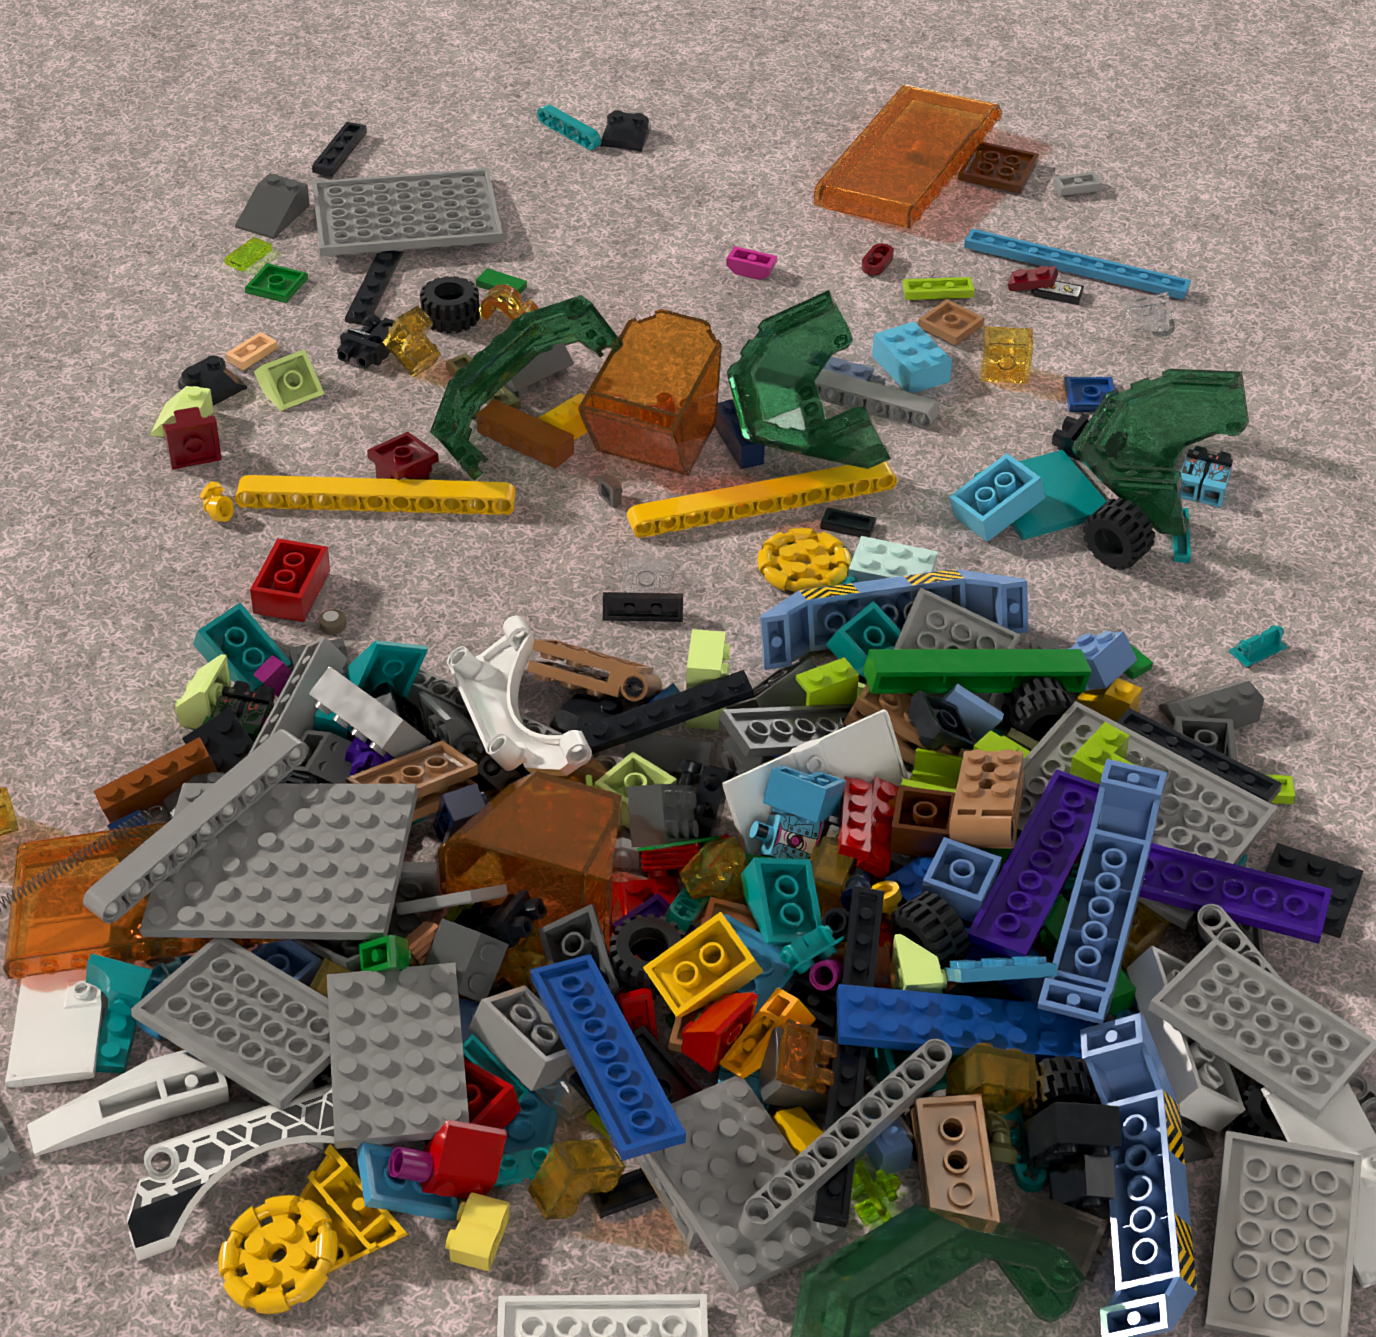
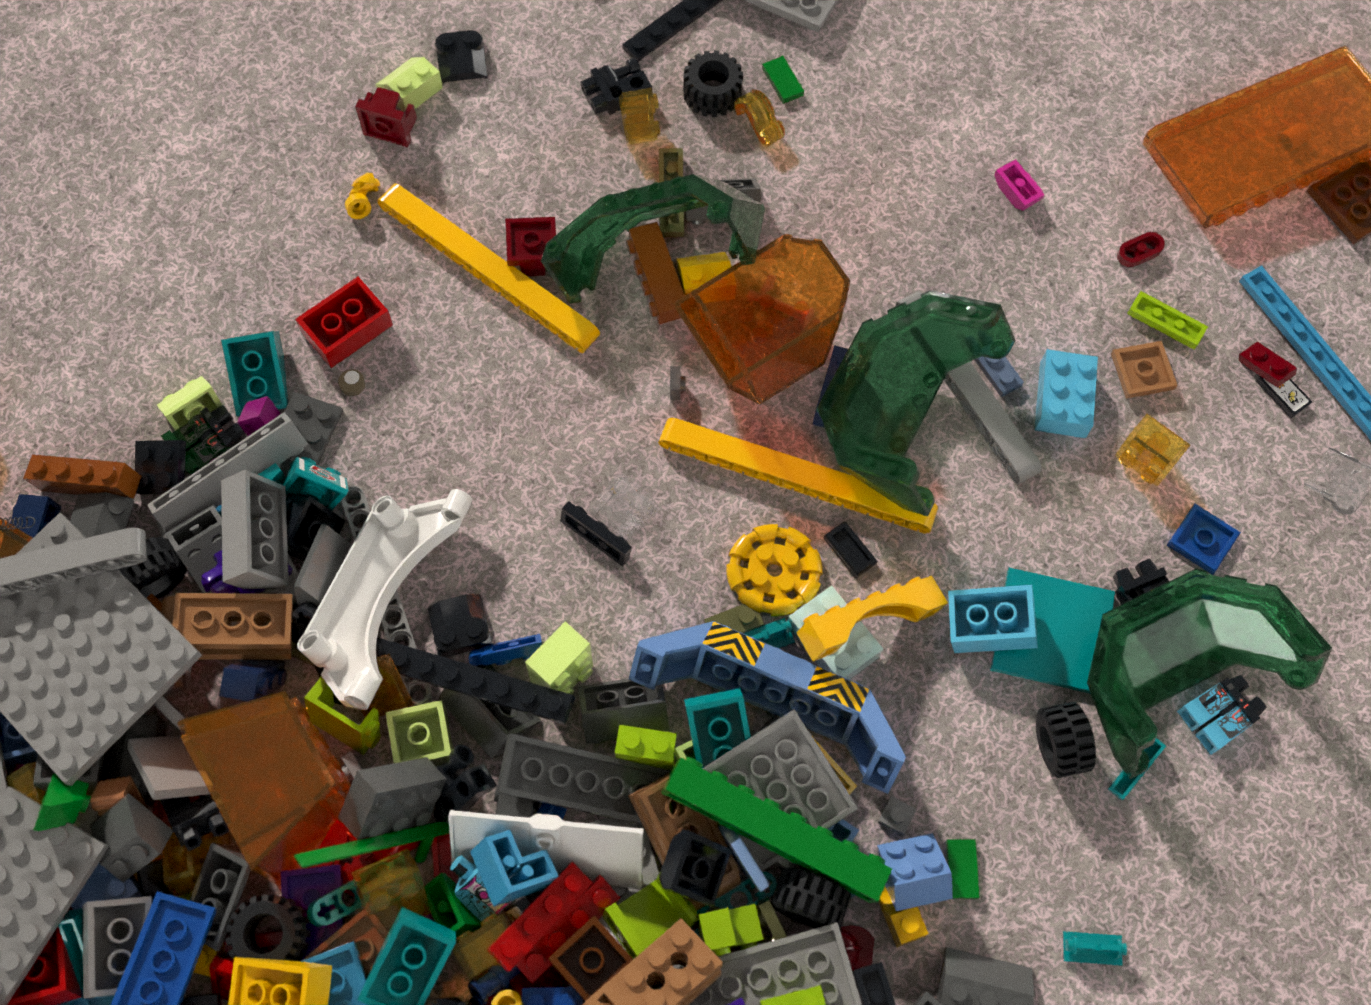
camera: 35 degrees right, 25 degrees up
(251, 351) = (517, 40): light nougat plate -> none
(289, 380) = (518, 94): yellowish green slope -> none
(625, 678) = (489, 586): medium nougat hinge -> none
(896, 538) = (830, 631): none -> yellow arch

